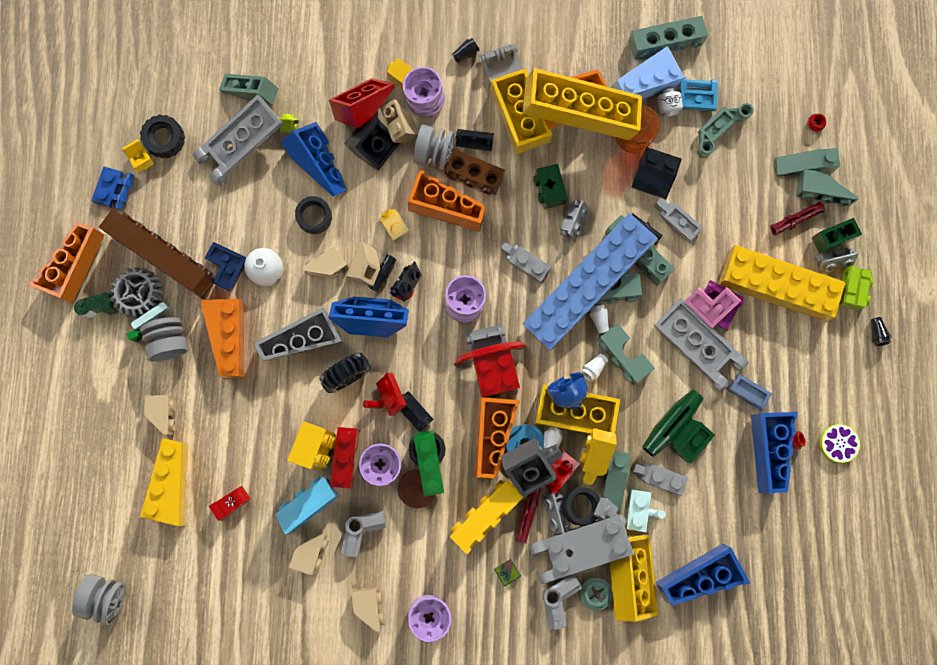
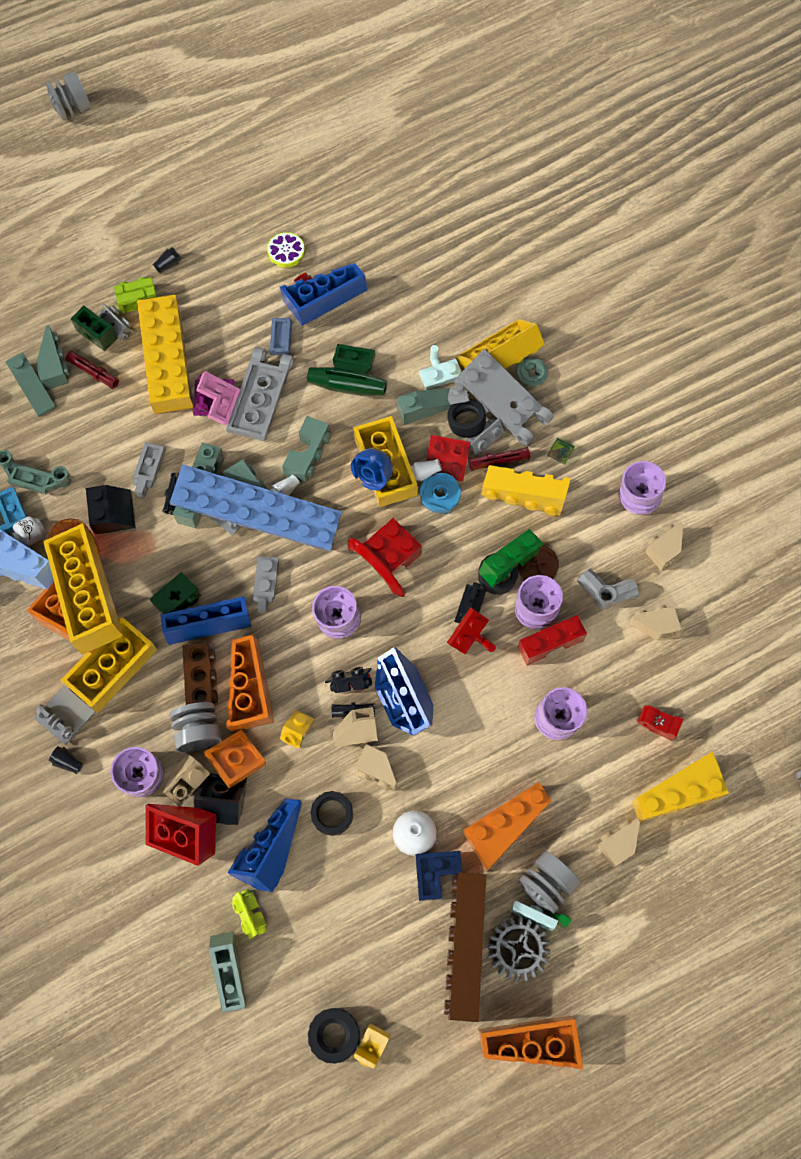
camera: 115 degrees left, 10 degrees down
(90, 306) = (556, 986): clear green leg -> none
(108, 186) = (425, 1062): blue plate -> none
(245, 132) = (282, 936): light grey hinge -> none
(269, 425) = (570, 707): none -> lavender wheel
(300, 336) = (464, 749): light grey wedge -> none
(306, 505) = (617, 647): medium azure slope -> none
(312, 447) = (563, 661): yellow brick -> none
(344, 372) = (474, 682): black gear -> none
(394, 166) = (235, 758): none -> orange plate
(397, 72) = (127, 812): yellow brick -> none
(474, 140) = (161, 696): black hinge -> none
(485, 337) = (361, 579): light grey hinge -> none
(492, 434) = (450, 521): orange wedge -> none
(516, 198) = (205, 620): none -> blue brick
(531, 466) = (458, 468): dark grey hinge -> none
(554, 610) = (566, 396): light grey piece -> none
(578, 212) = (189, 560): light grey hinge -> none
(594, 368) = (337, 470): white cone -> none
(597, 455) = (414, 421): yellow hinge -> none
(661, 478) = (400, 368): light grey hinge -> none
(703, 576) = (465, 297): blue wedge -> none

